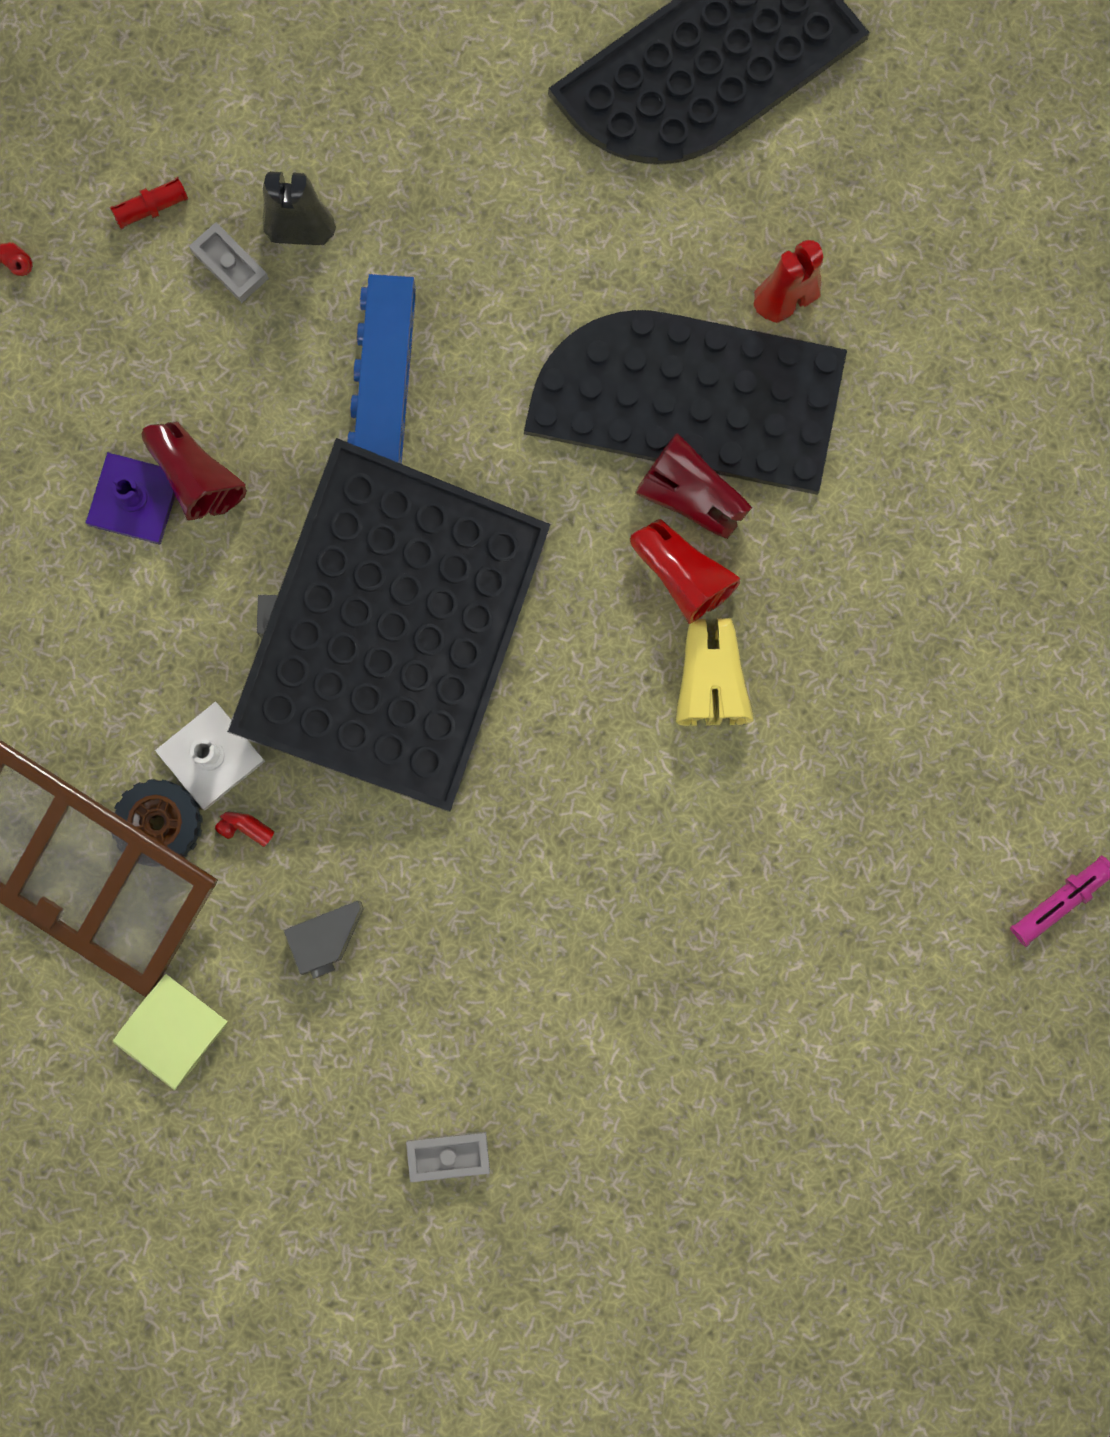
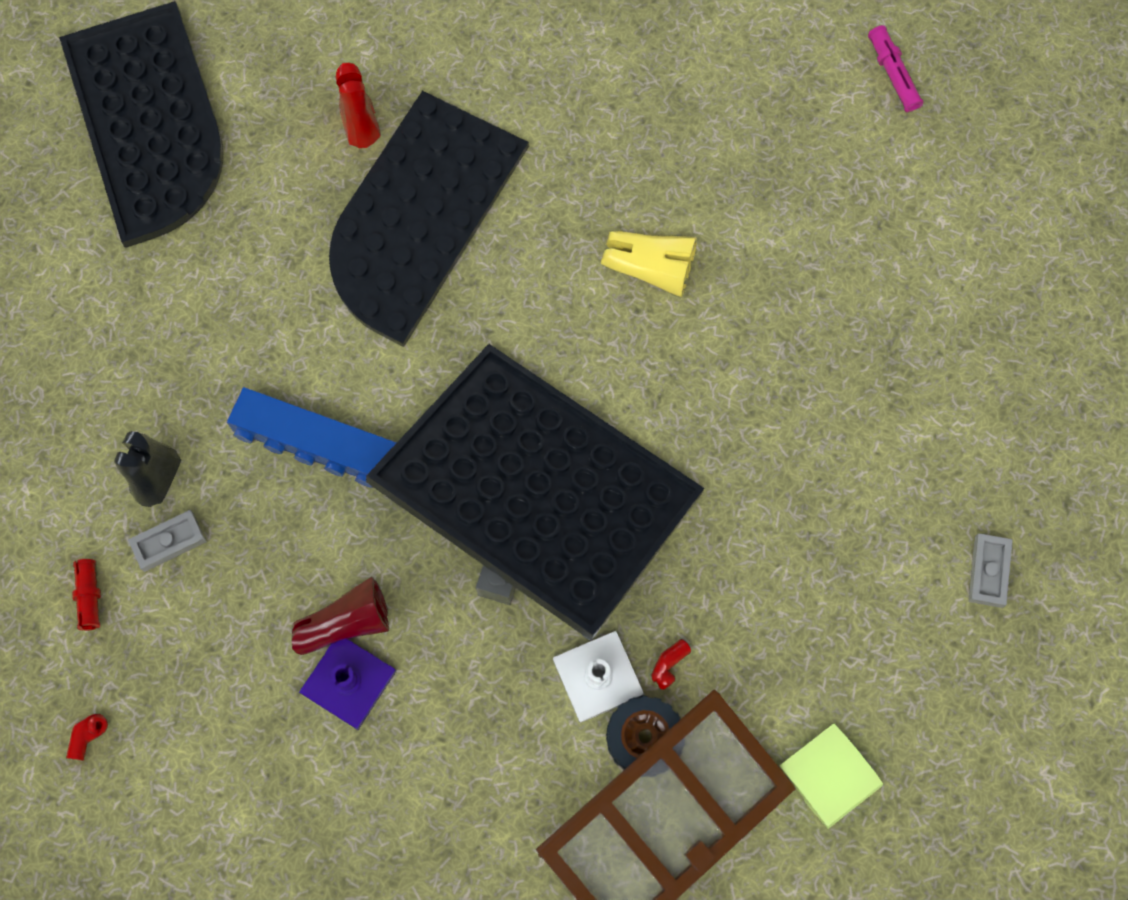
camera: 70 degrees left, 10 degrees down
(323, 939) = (784, 619): dark grey slope -> none
(689, 575) = (567, 249): red piece -> none
(693, 489) = (495, 229): dark red piece -> none

